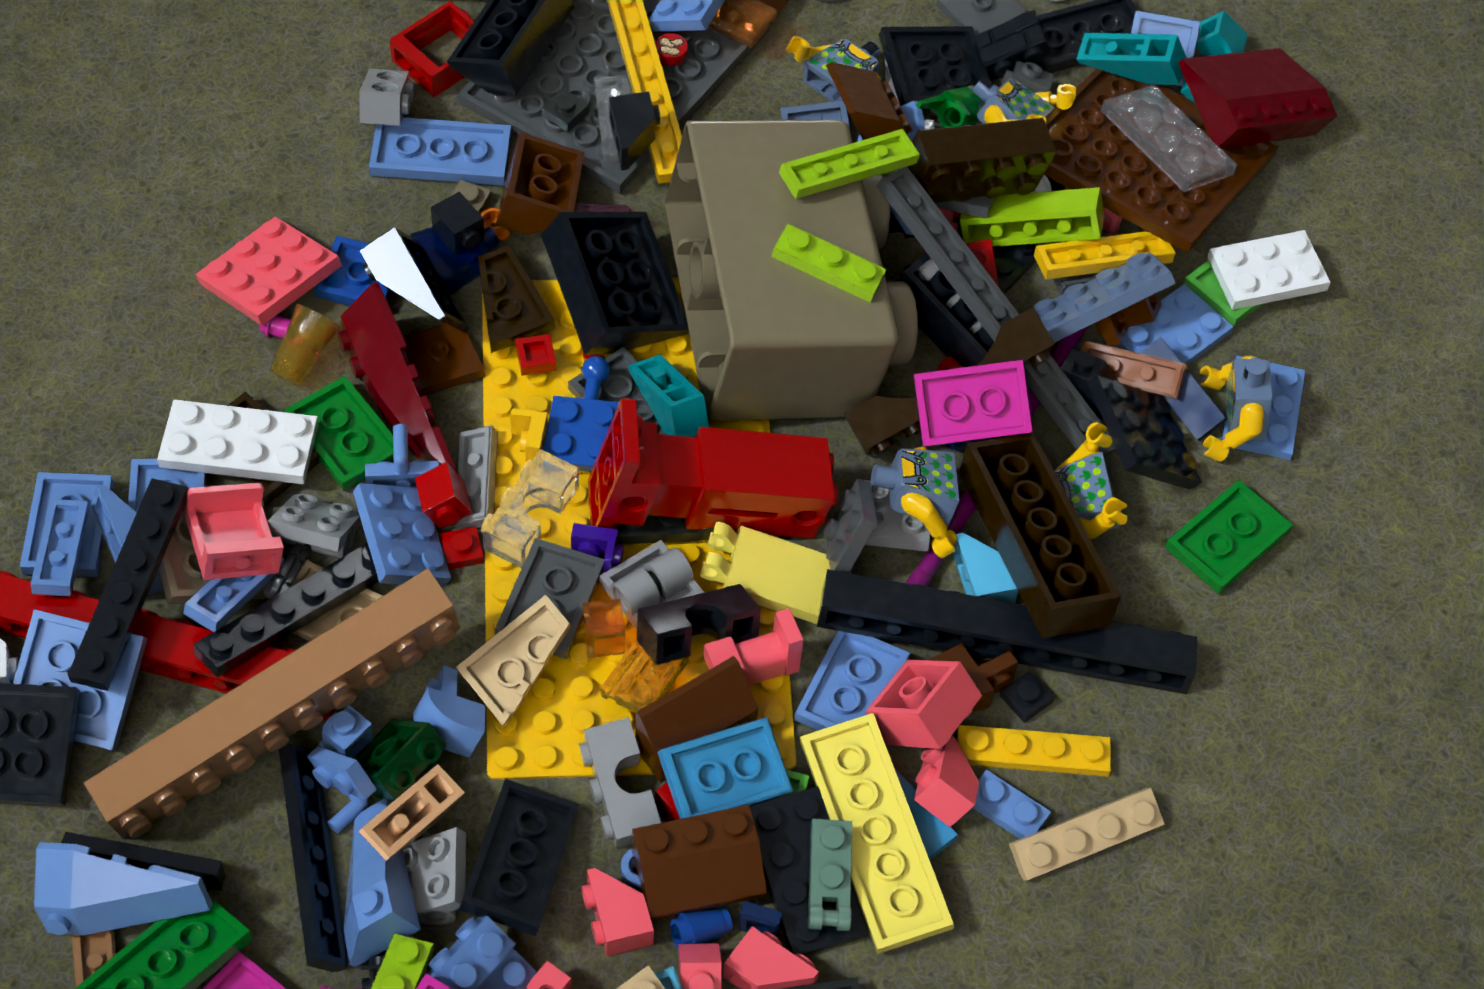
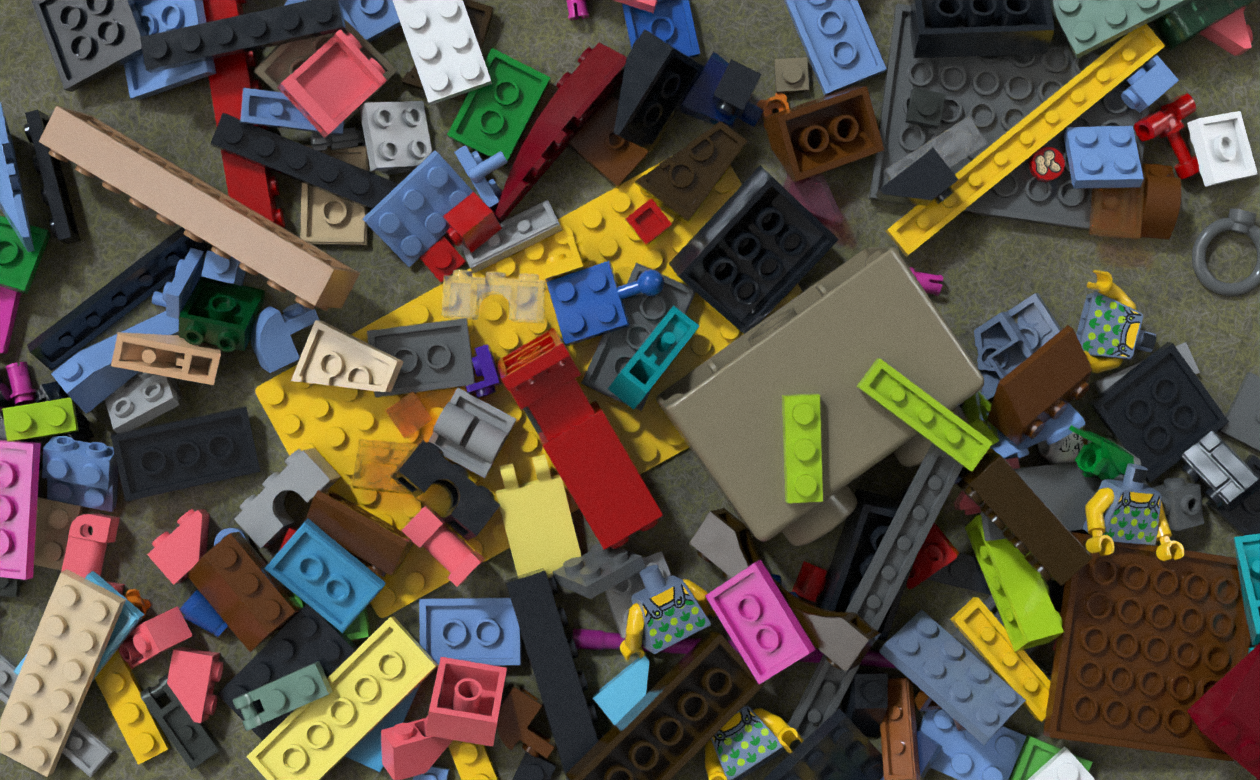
camera: 70 degrees right, 30 degrees up
(302, 344) = (558, 27): clear yellow plant -> none
(760, 918) = (230, 656): dark blue tile -> none
(1168, 138) = (1176, 662): clear plate -> none

